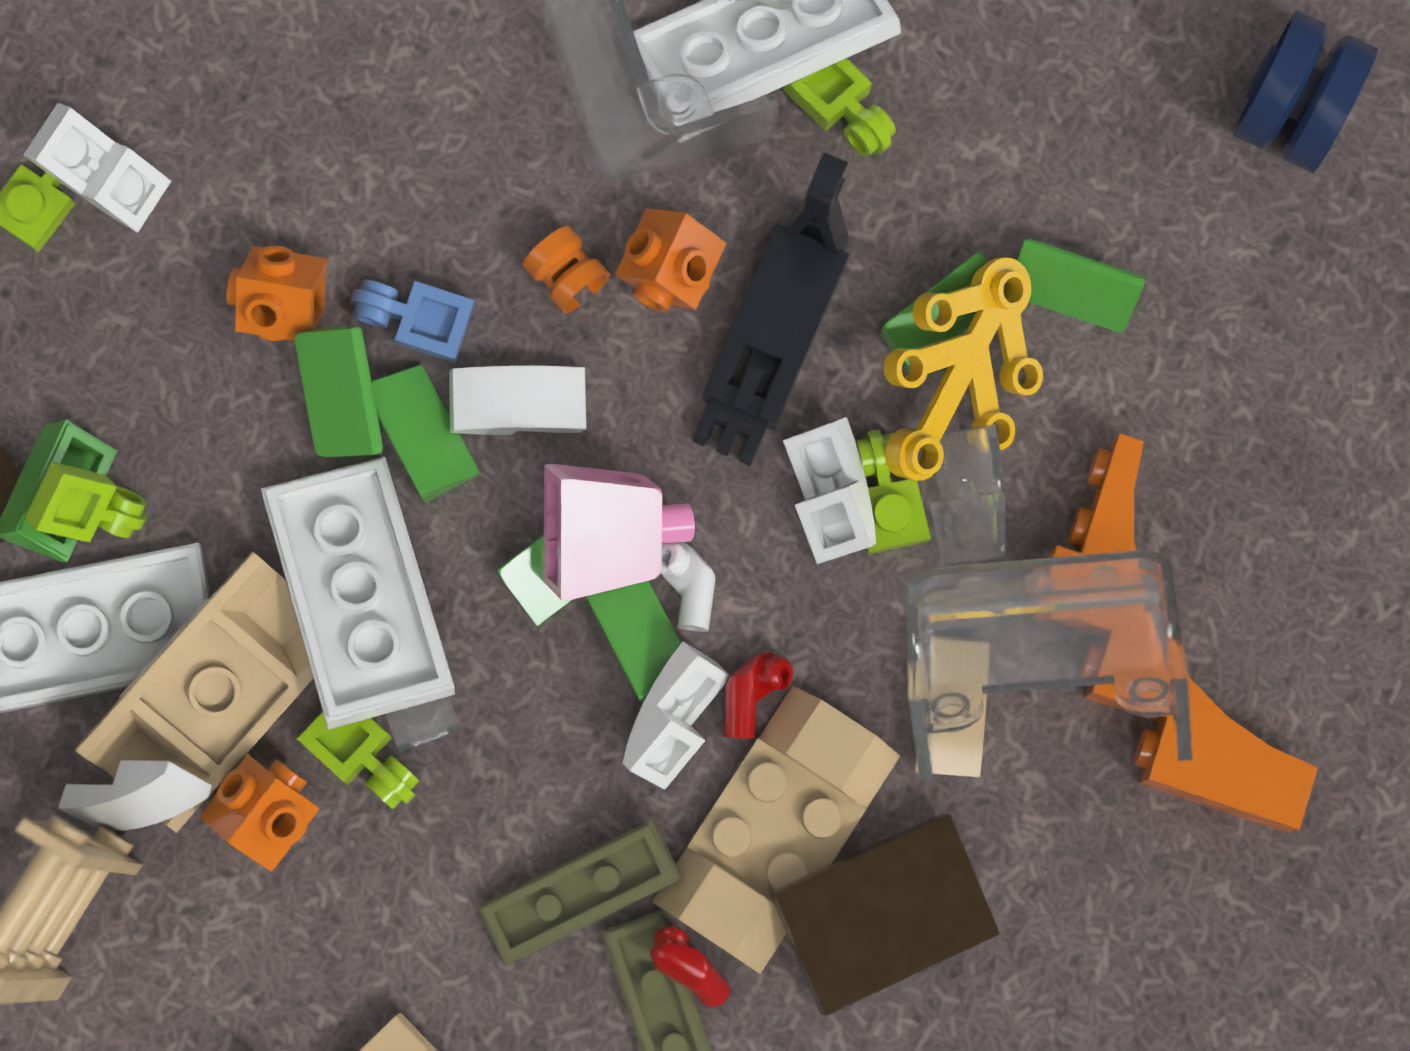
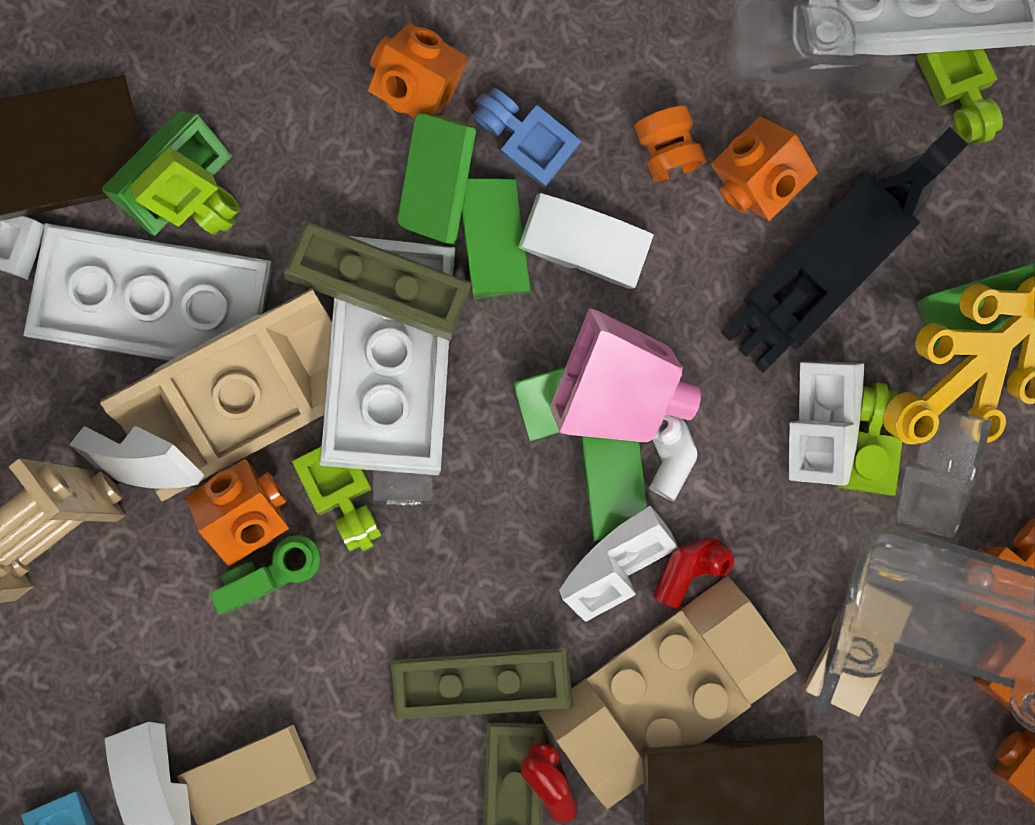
camera: 25 degrees right, 5 degrees up
(298, 883) = (248, 584): none -> bright green plate
(317, 519) = (377, 280): none -> olive tile

